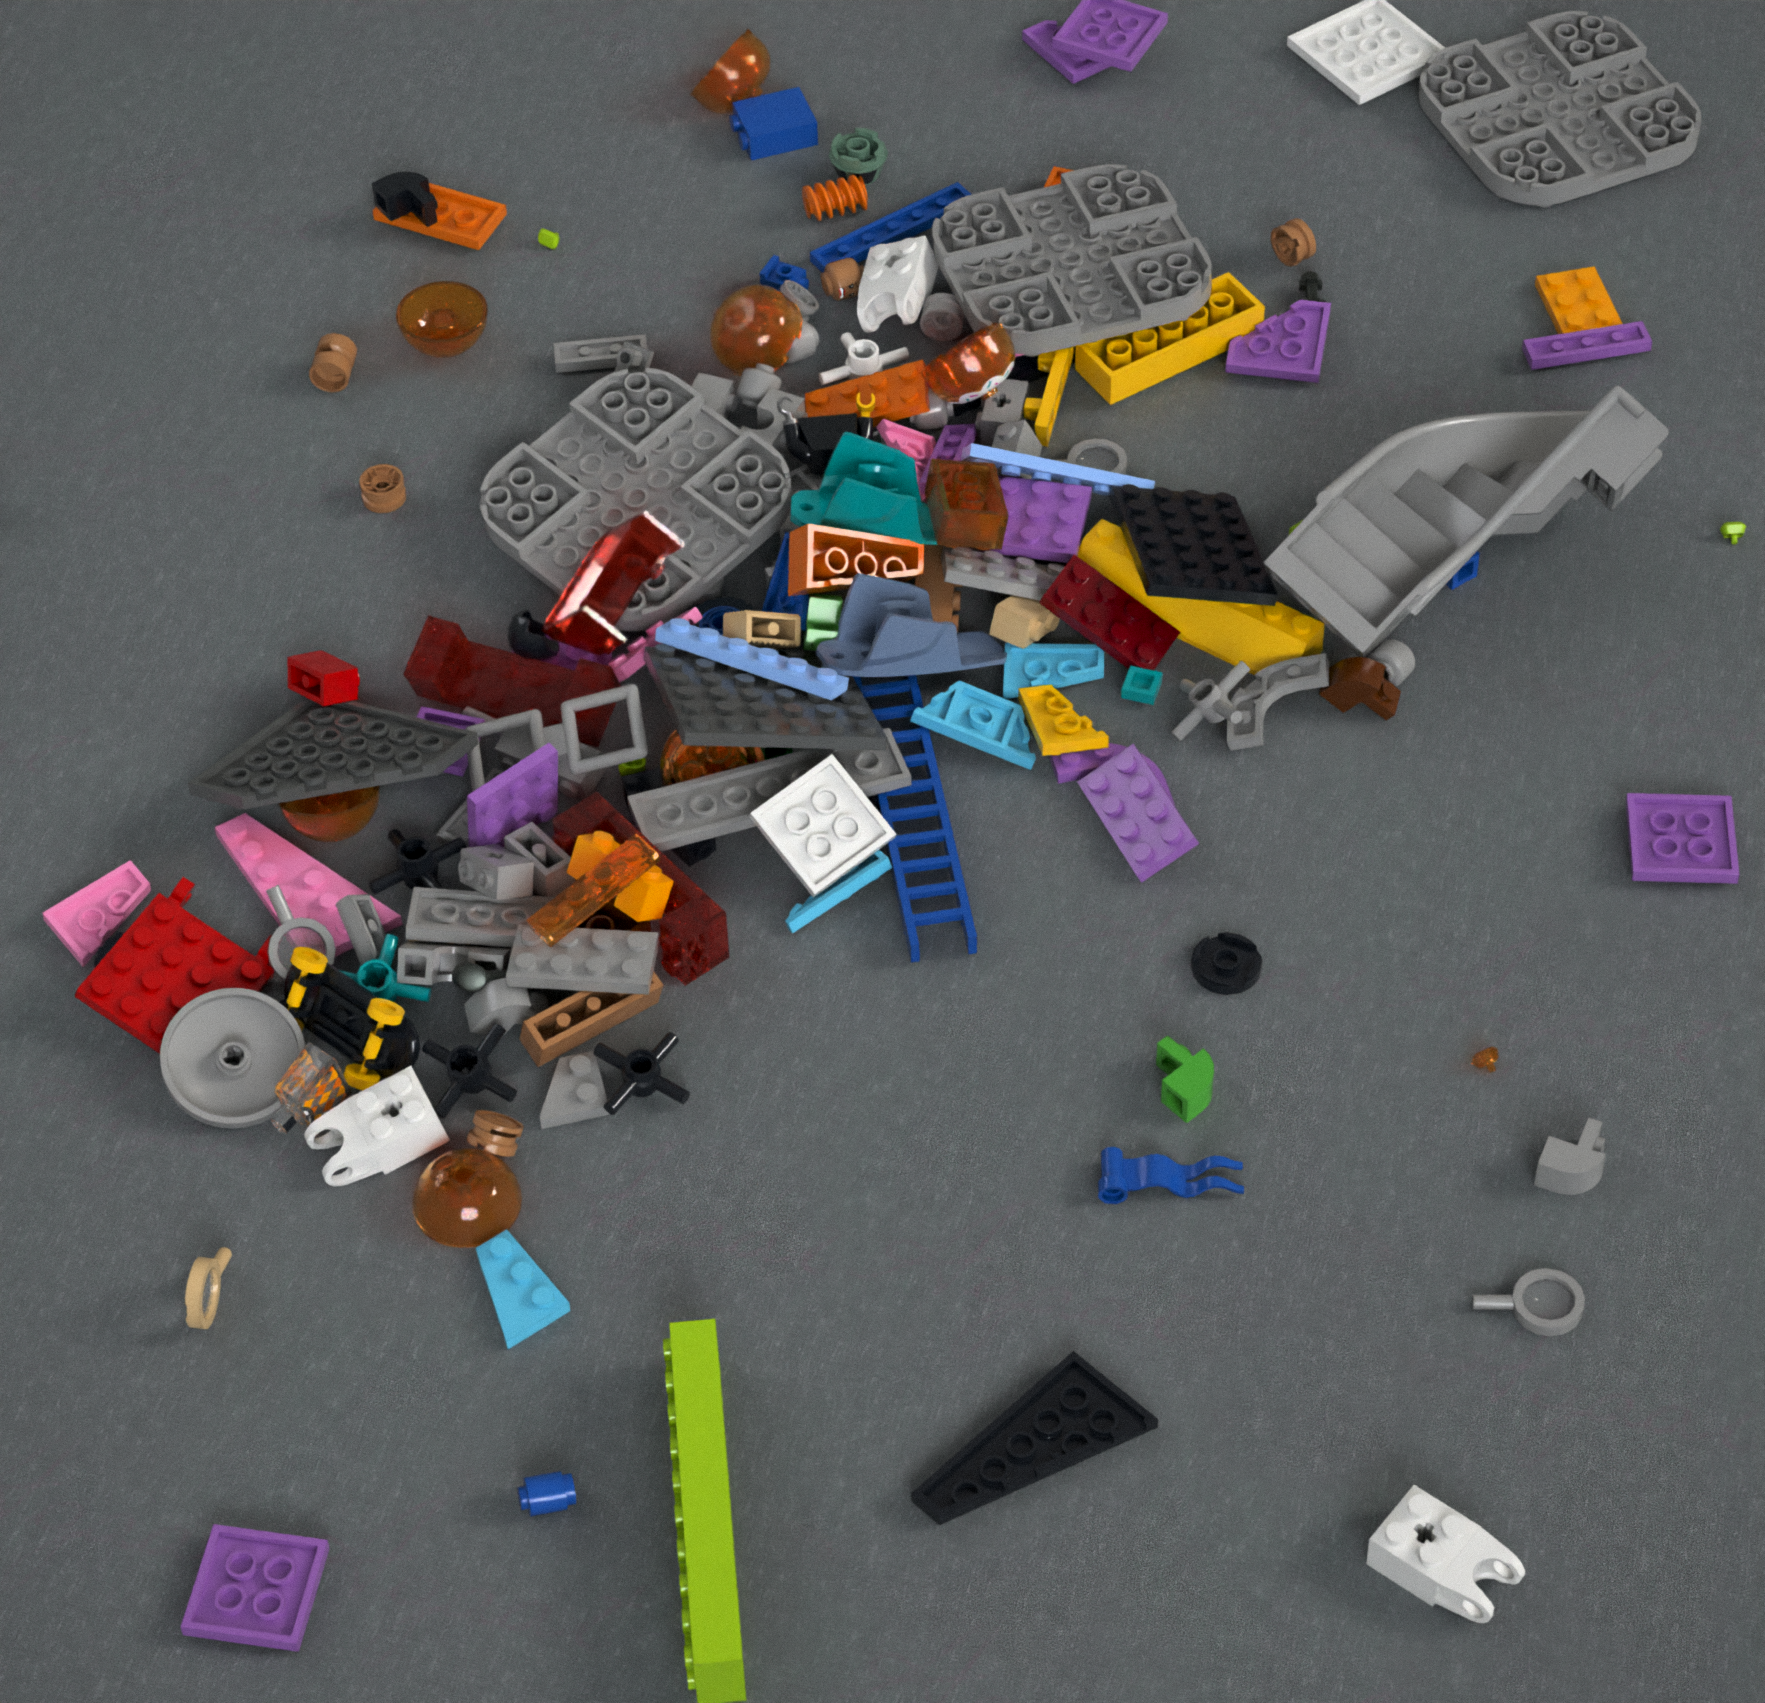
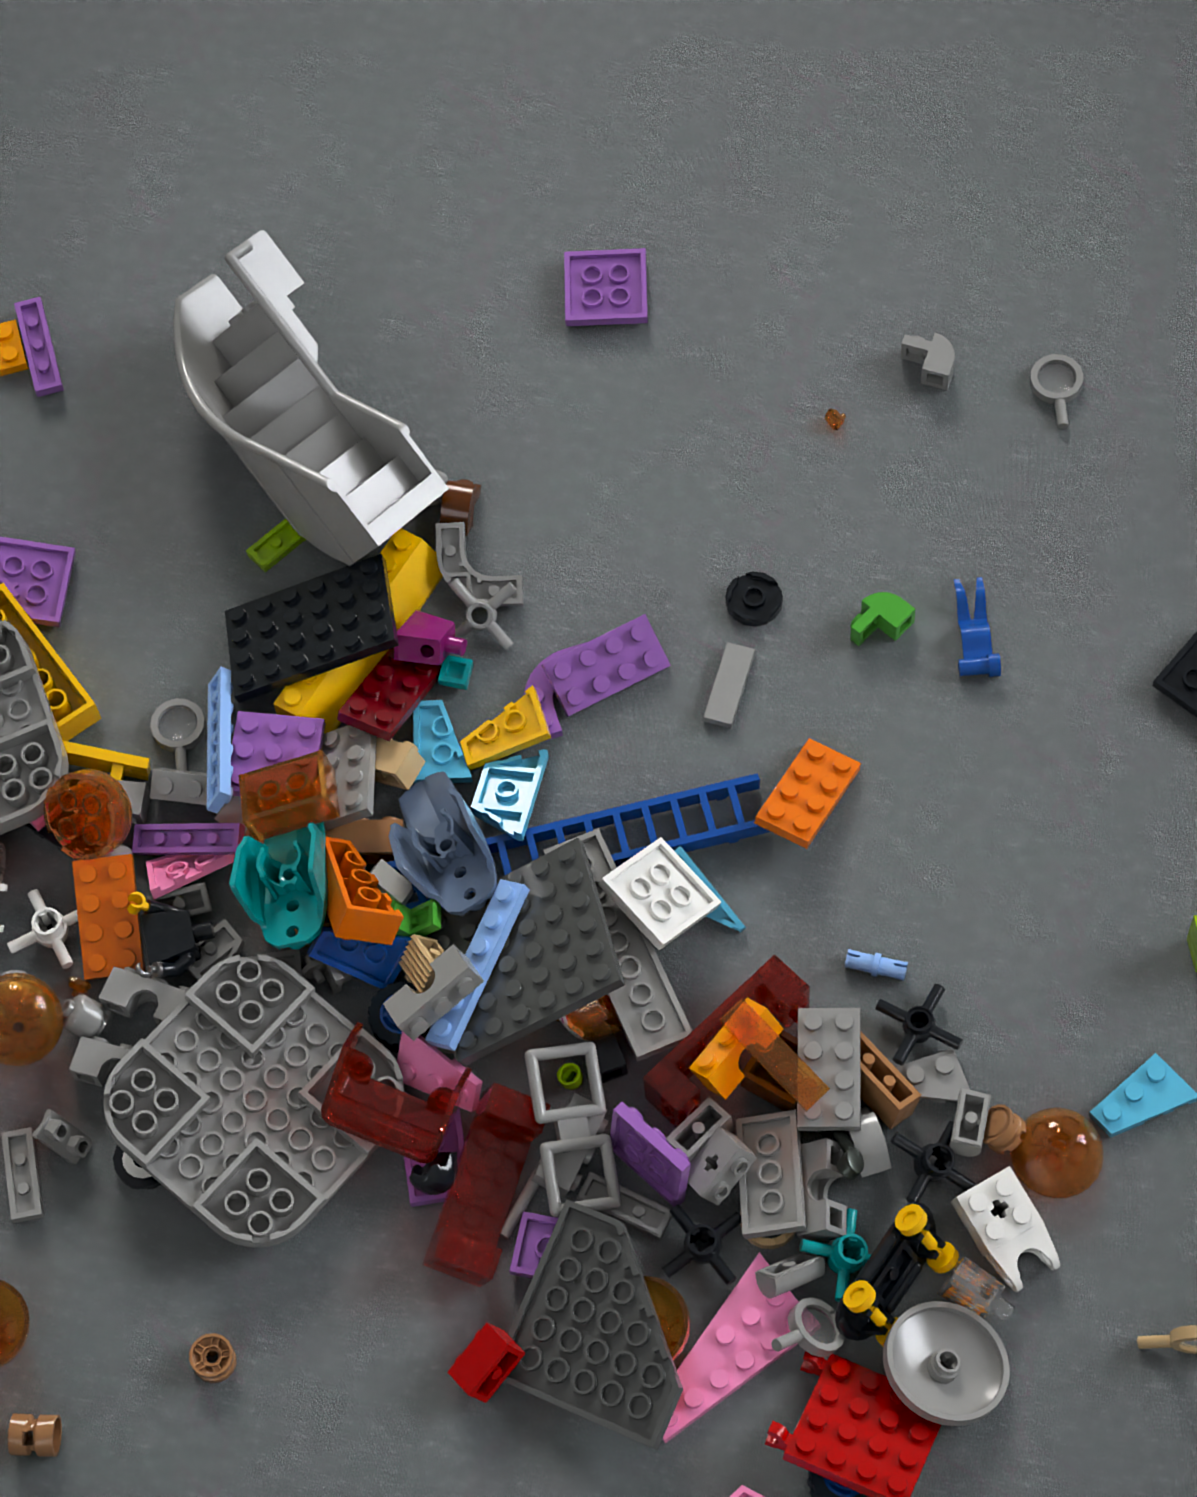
camera: 90 degrees left, 15 degrees up
(506, 1096) = (969, 1122): none -> light grey brick
(705, 607) = (453, 982): none -> light grey arch
(725, 1044) = (876, 964): none -> light blue pin
(801, 389) = (78, 985): none -> clear orange rock
(948, 985) = (807, 793): none -> orange plate
(1108, 932) = (729, 685): none -> light grey tile
(1175, 646) = (427, 640): none -> magenta torso

